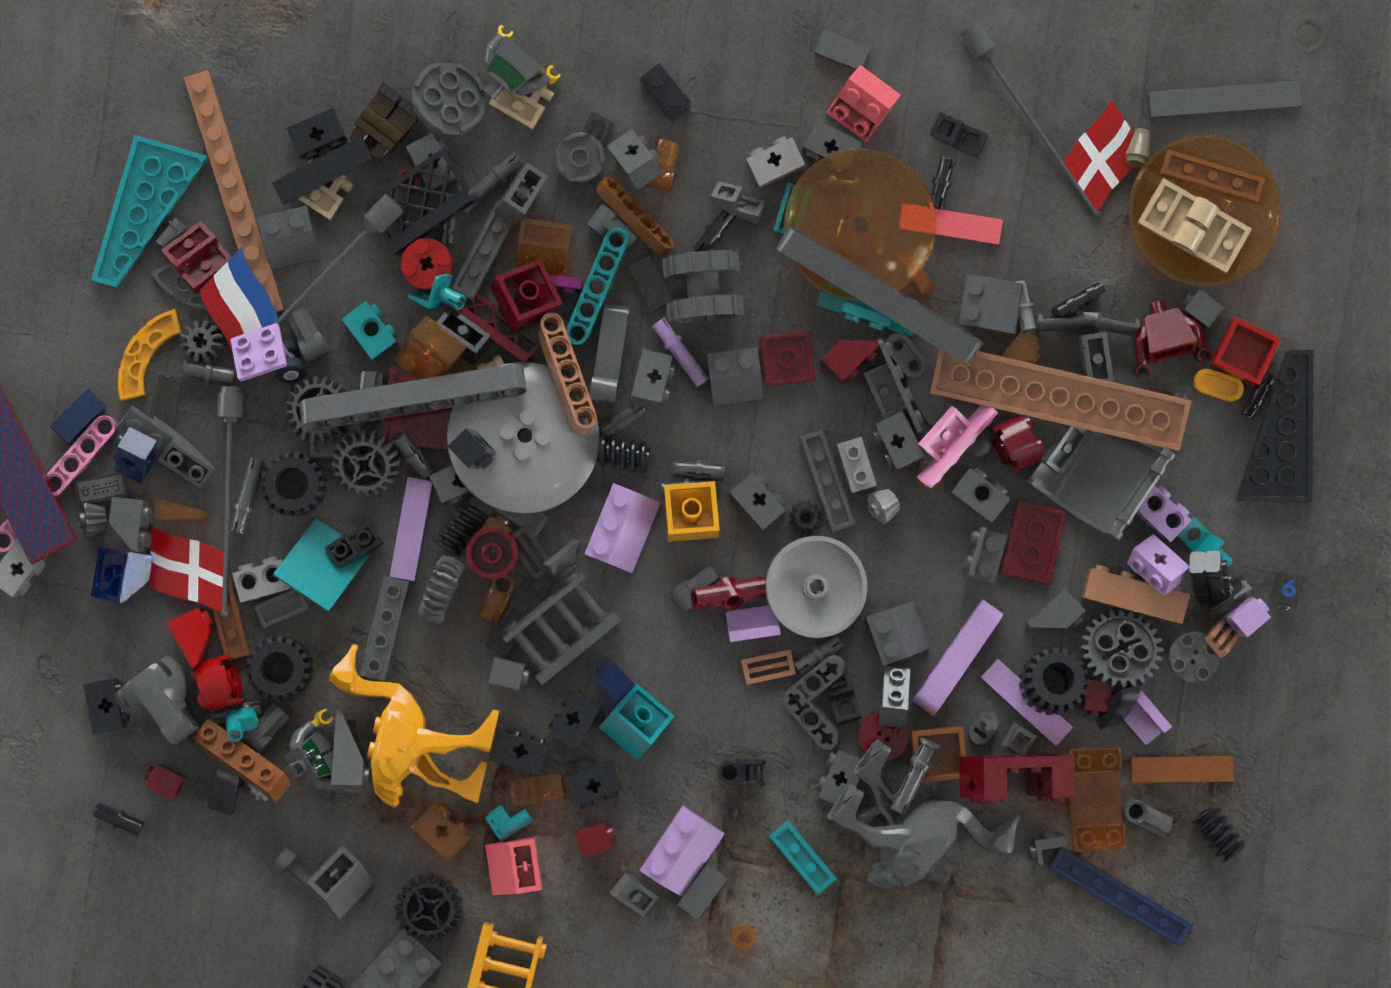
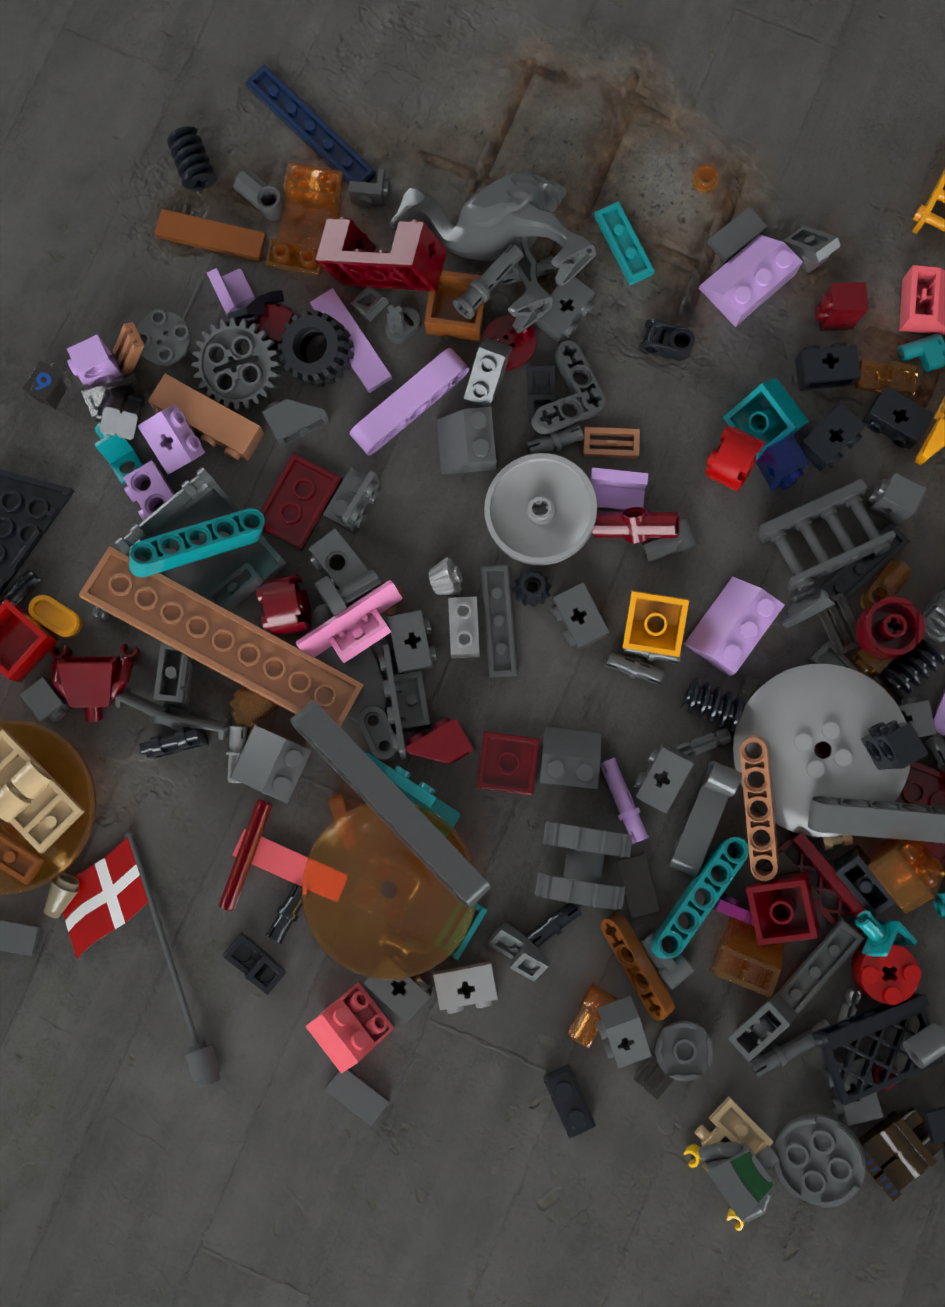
camera: 160 degrees left, 5 degrees down
(657, 675) = (734, 459): none -> red brick
(971, 459) = (337, 599): none -> dark grey piece
(991, 222) = (245, 855): none -> dark red axle
(1112, 465) = (188, 552): none -> teal beam

